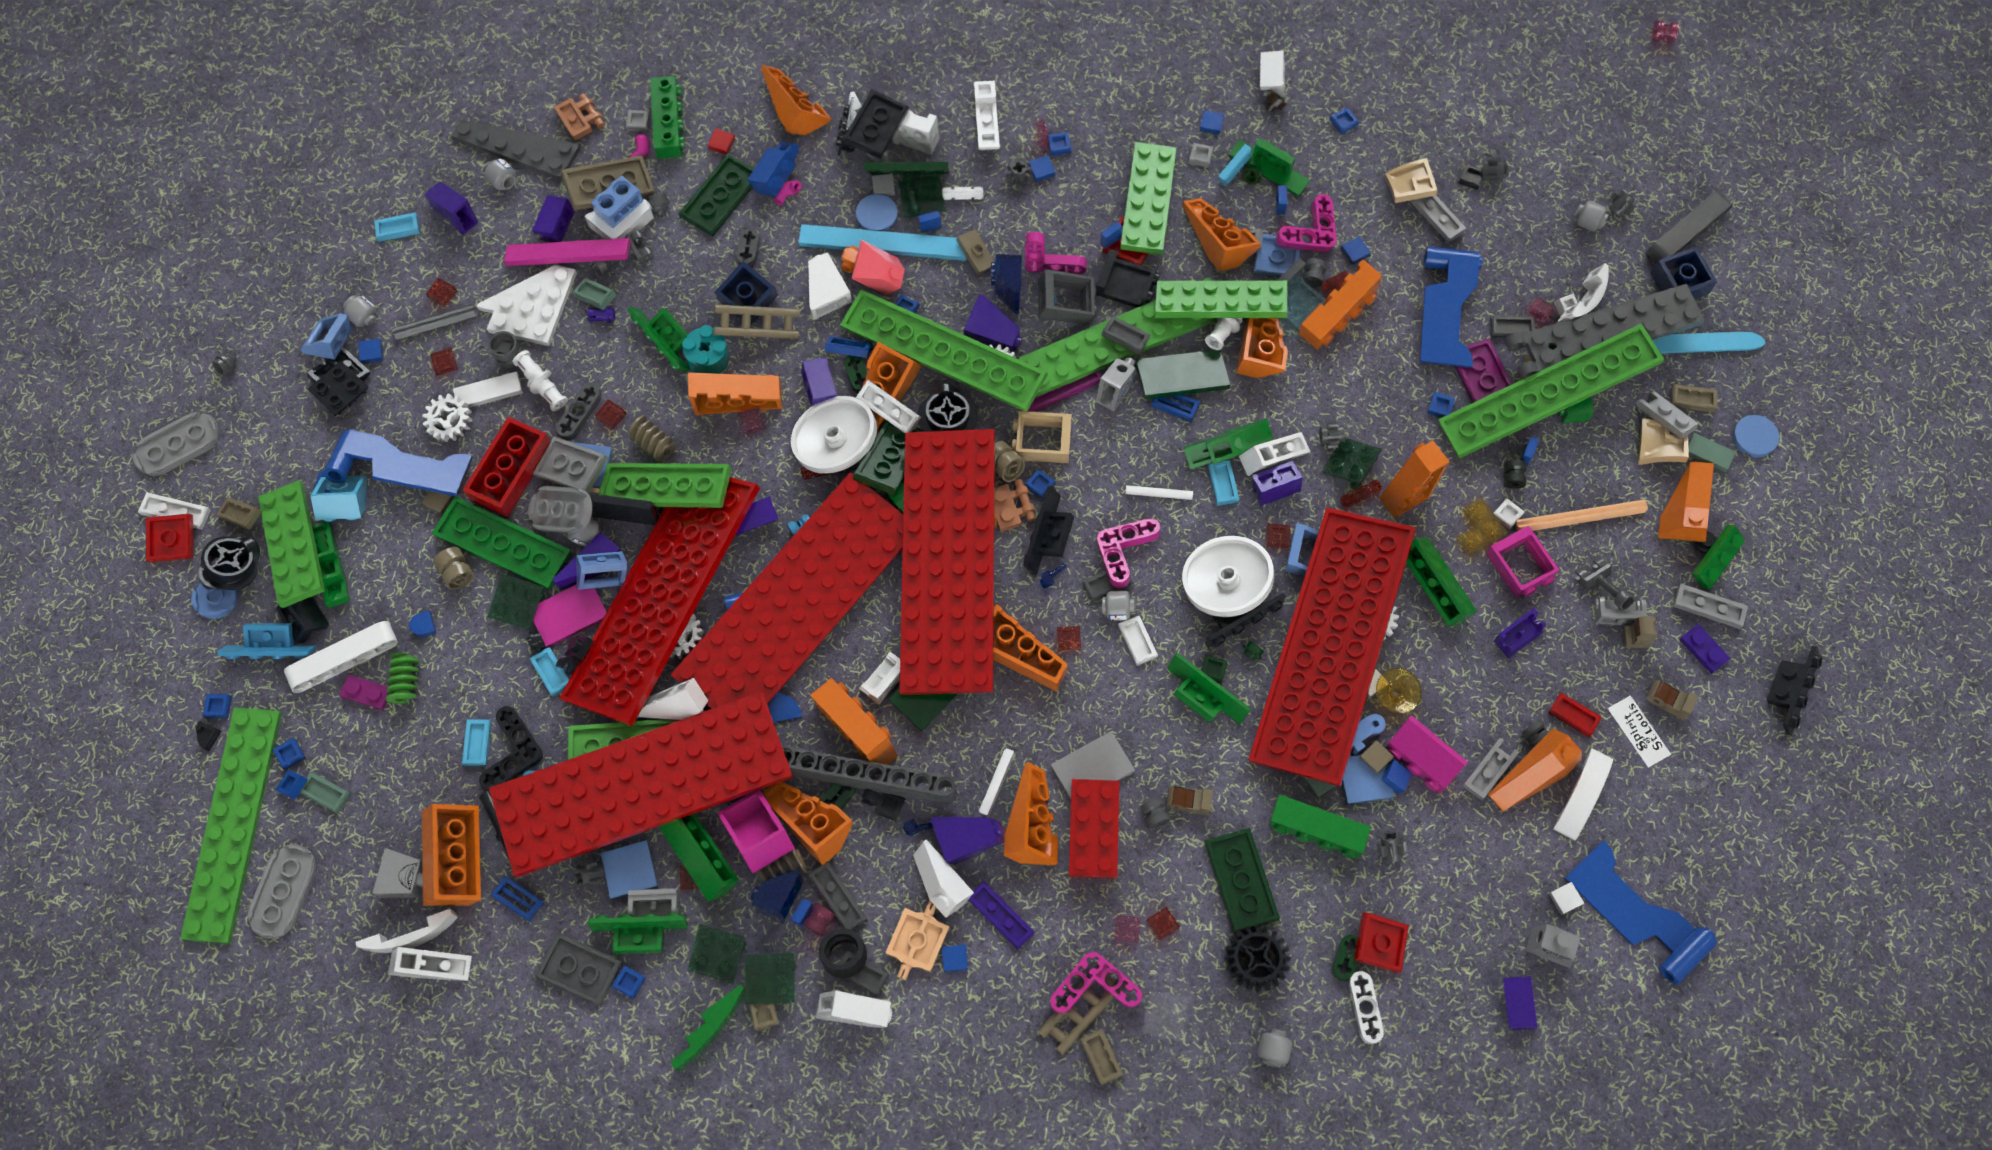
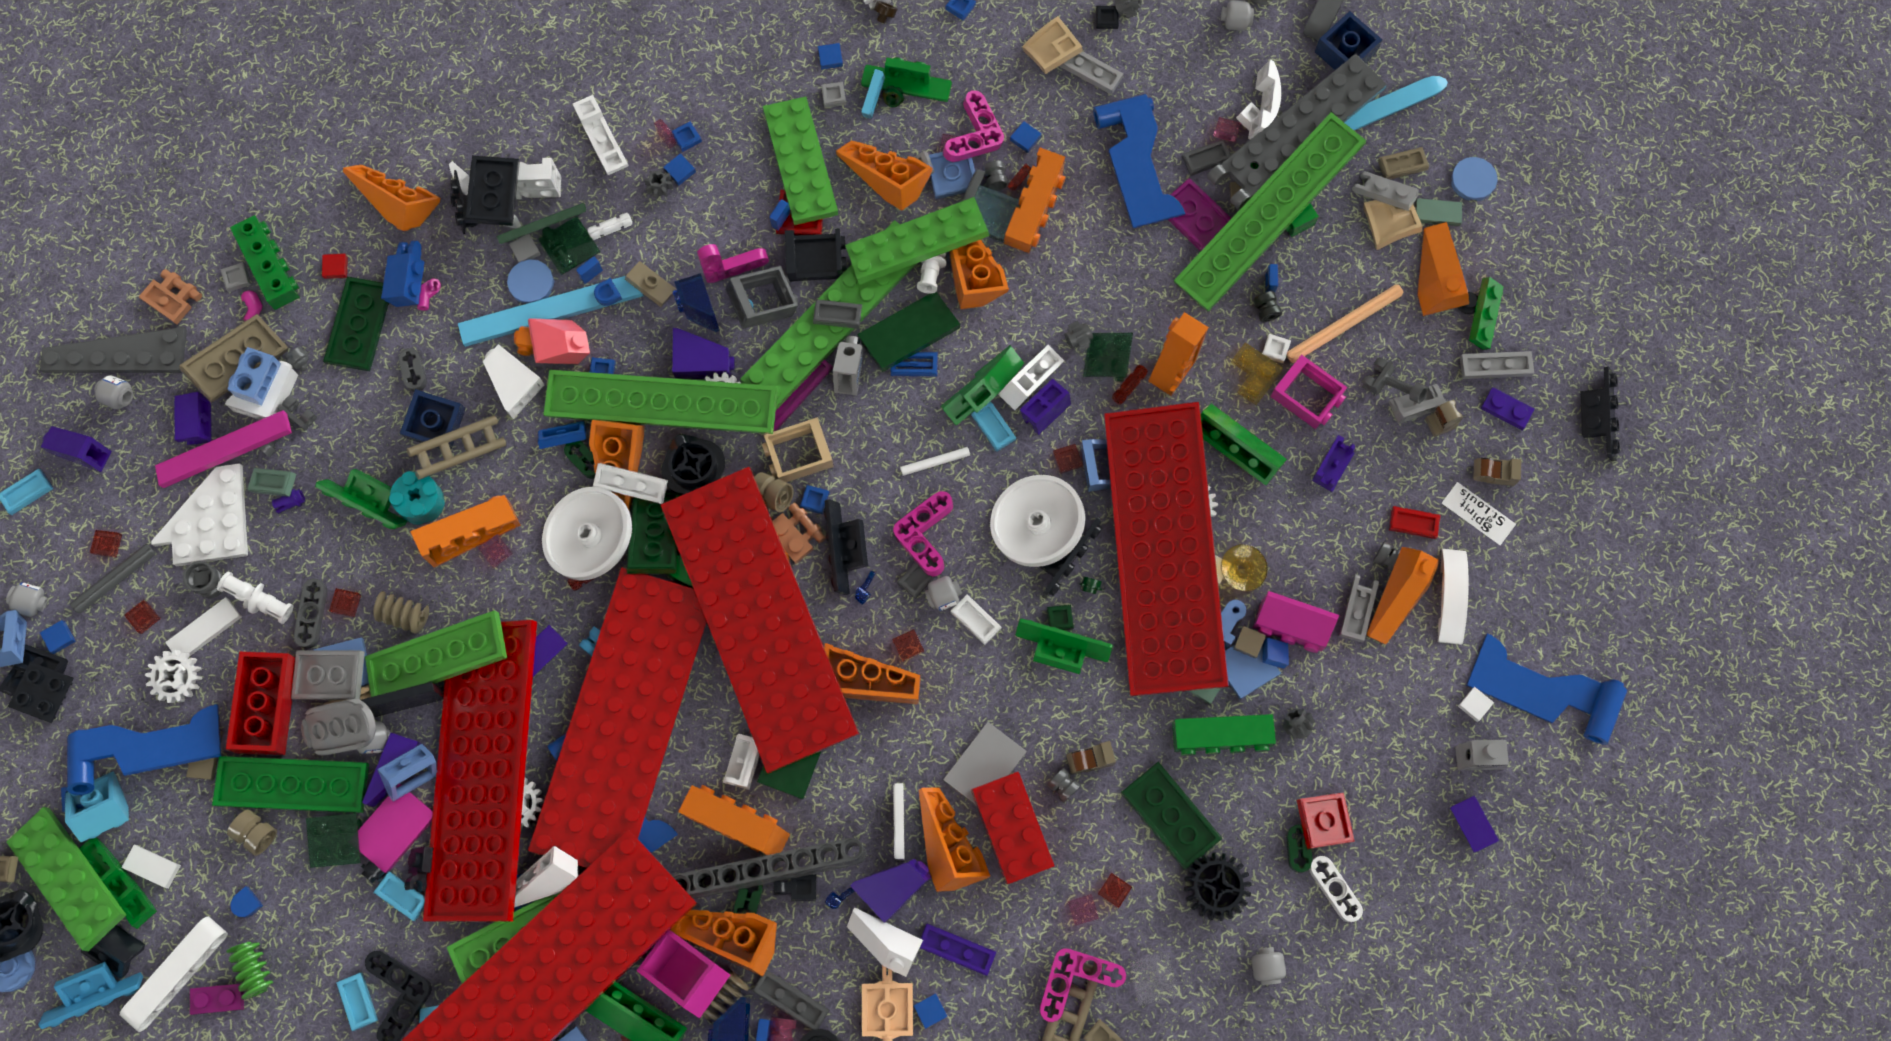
camera: 25 degrees left, 5 degrees up
(361, 563) = (151, 866): none -> white tile
(817, 380) = (546, 483): hinge -> none
(936, 245) = (607, 293): none -> blue tile
(1281, 200) = (932, 112): blue tile -> none
(1440, 405) = (1170, 264): blue tile -> none

